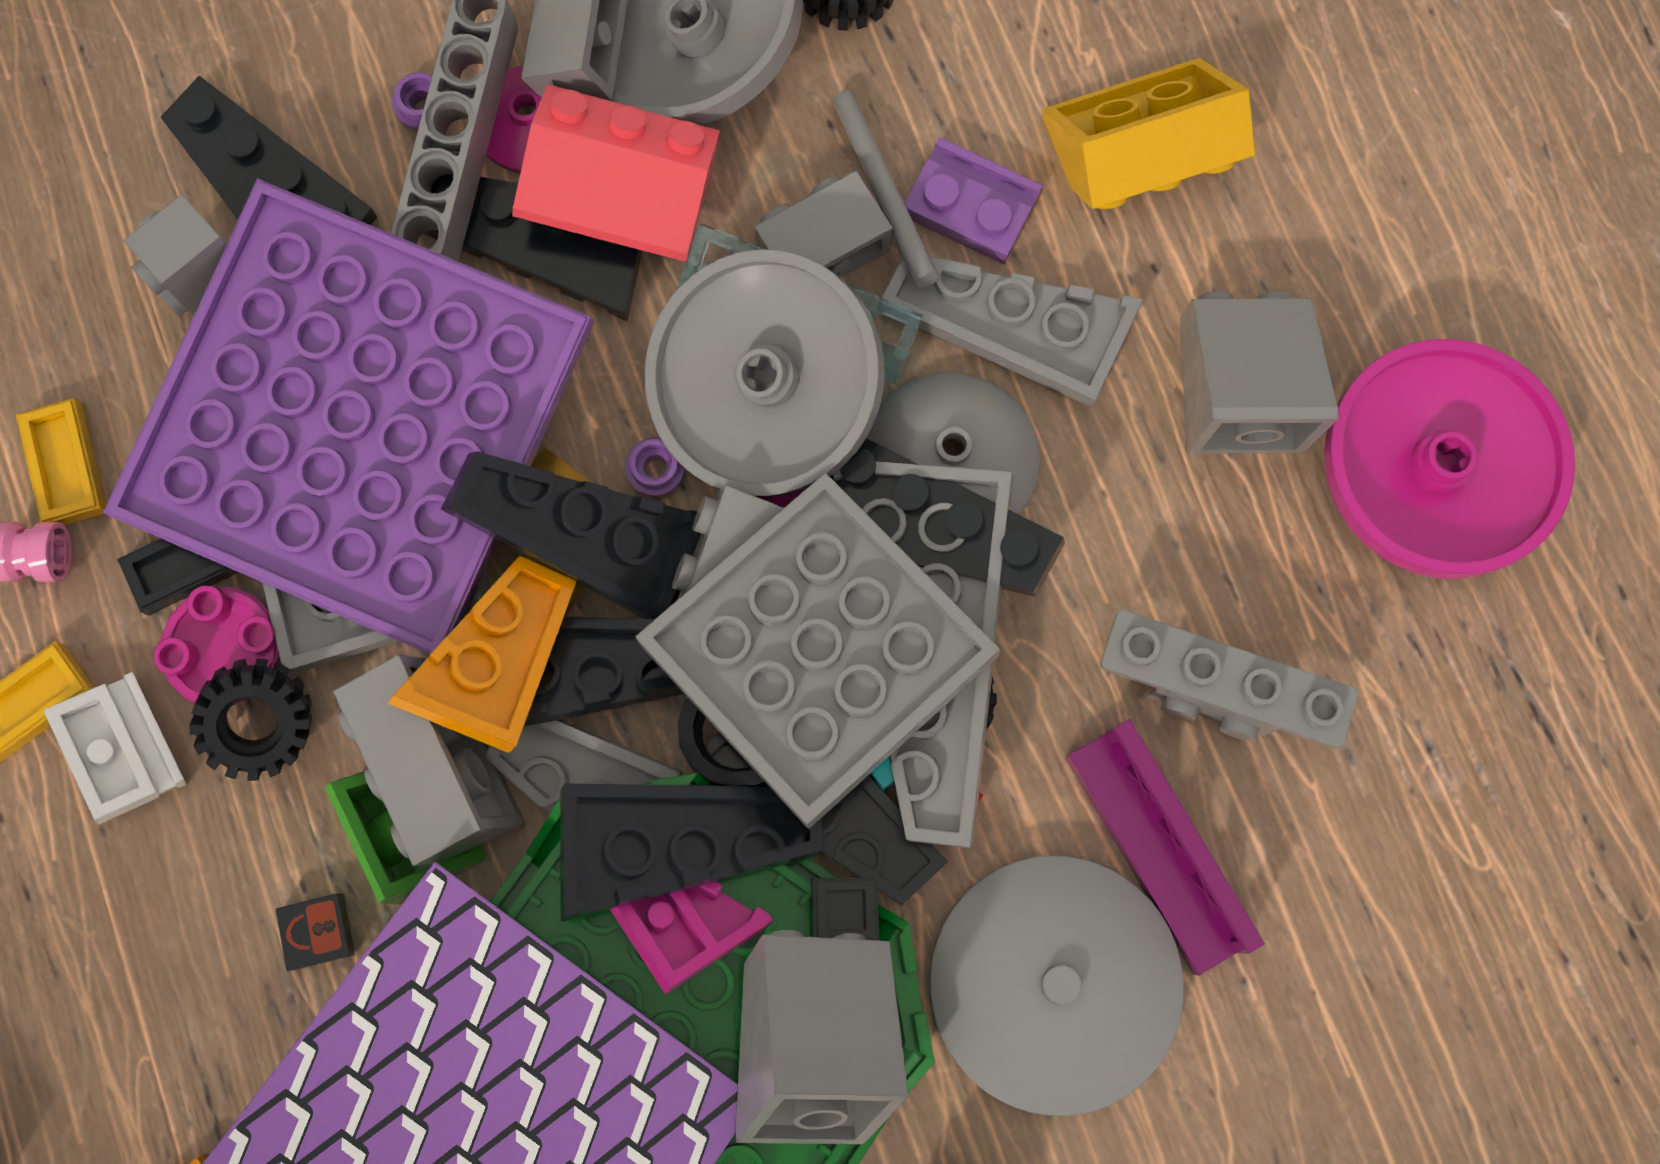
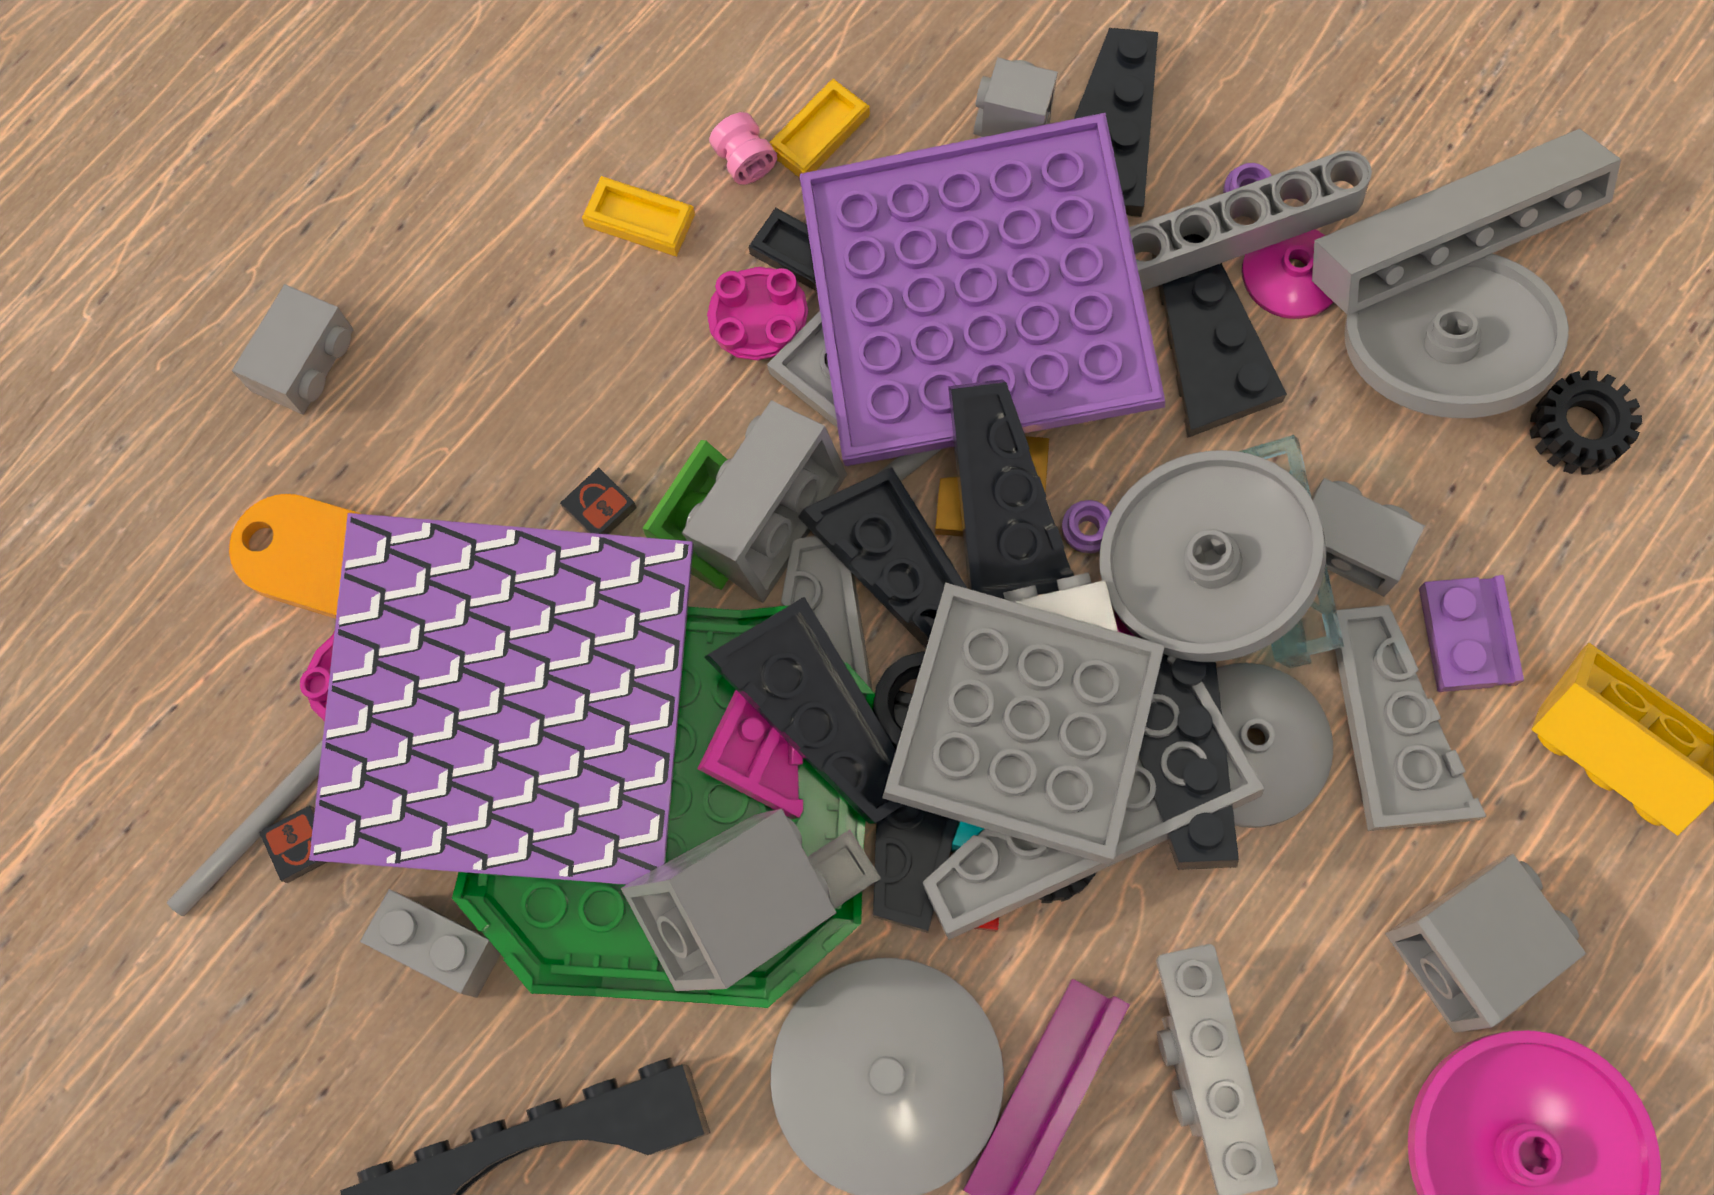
camera: 65 degrees right, 5 degrees down
(114, 748) = (644, 291): white plate -> none
(242, 754) = (690, 371): black tyre -> none
(493, 659) = (865, 494): light orange wing -> none
(615, 172) = (1293, 353): coral slope -> none
(885, 189) = (1427, 559): light grey bar -> none

